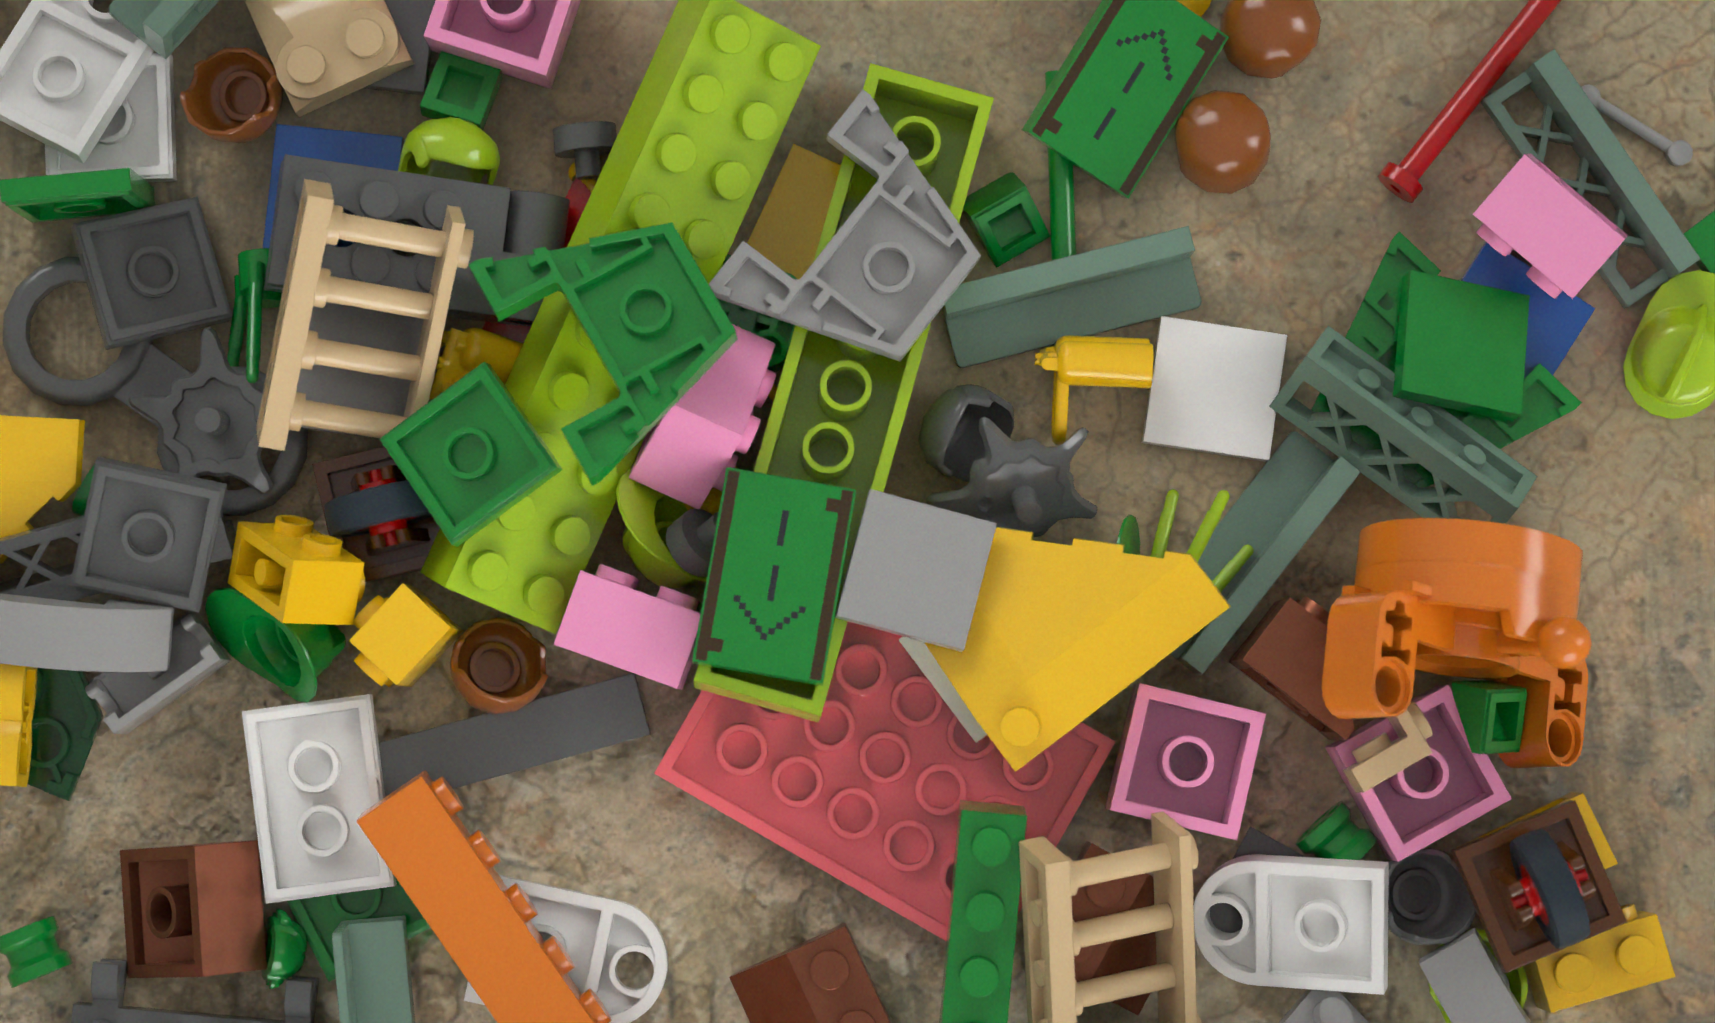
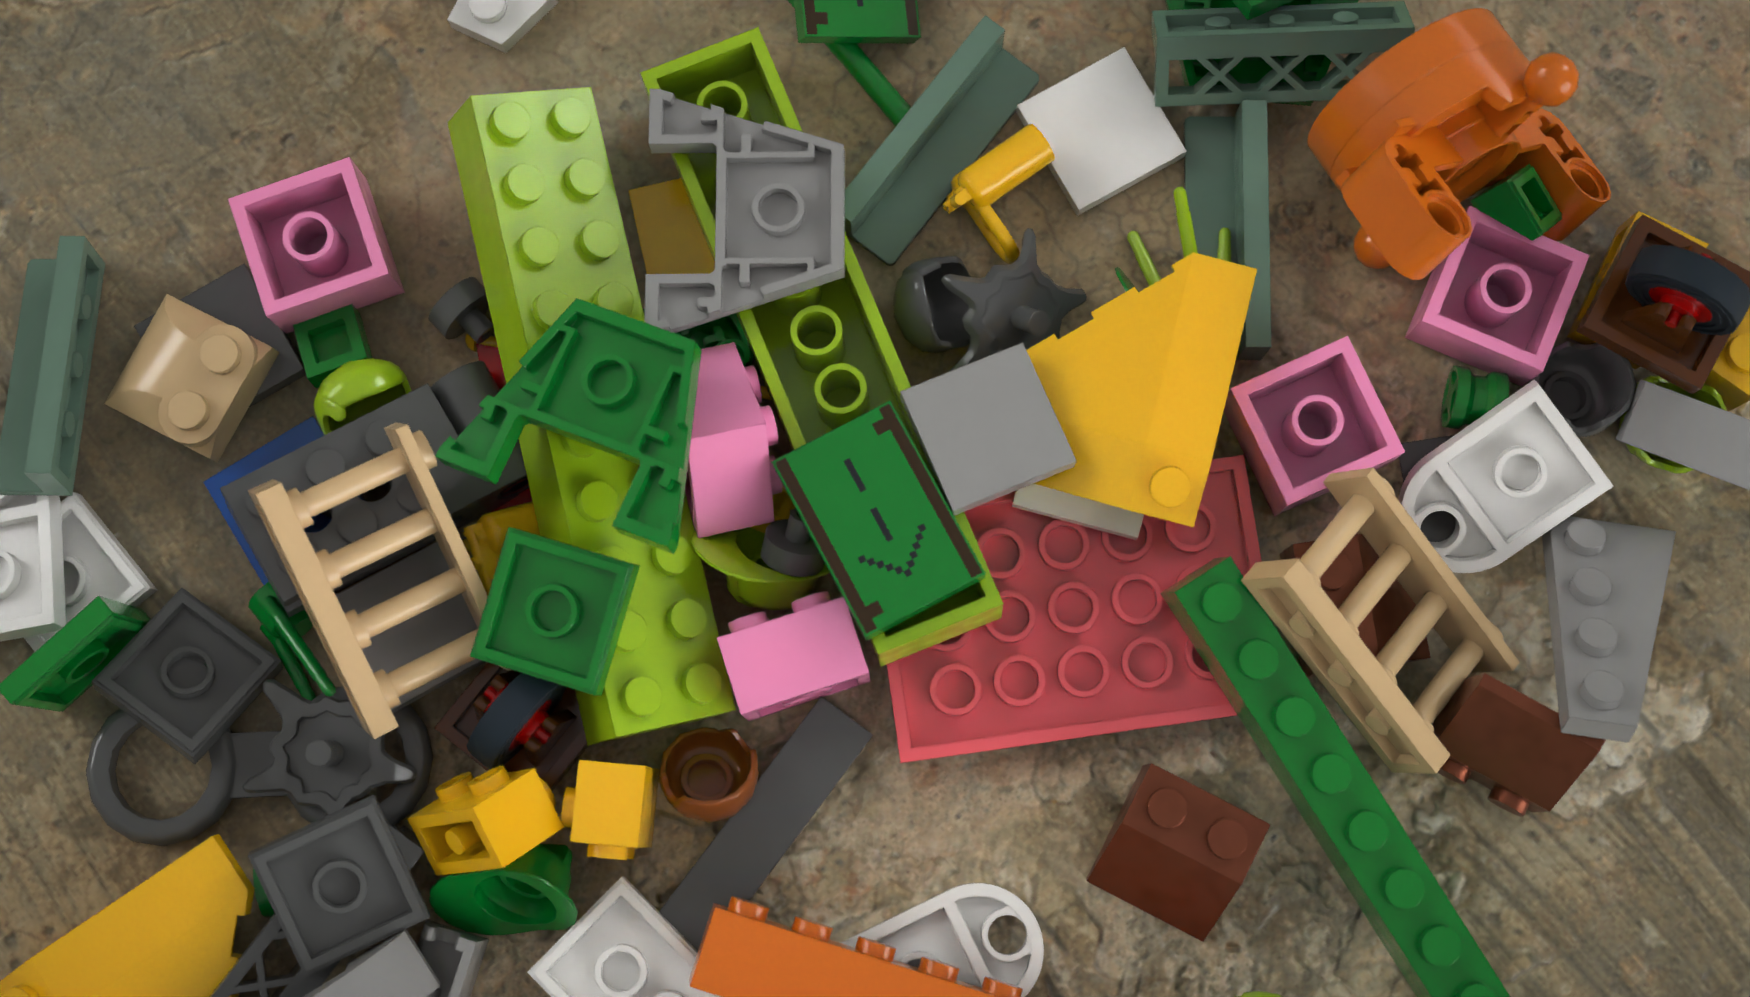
camera: 30 degrees left, 5 degrees down
(233, 95) = (150, 484): dark orange hair -> none
(1005, 218) = (842, 119): green slope -> none
(1288, 662) = (1341, 282): copper slope -> none
(1382, 759) = (1471, 295): tan bracket -> none

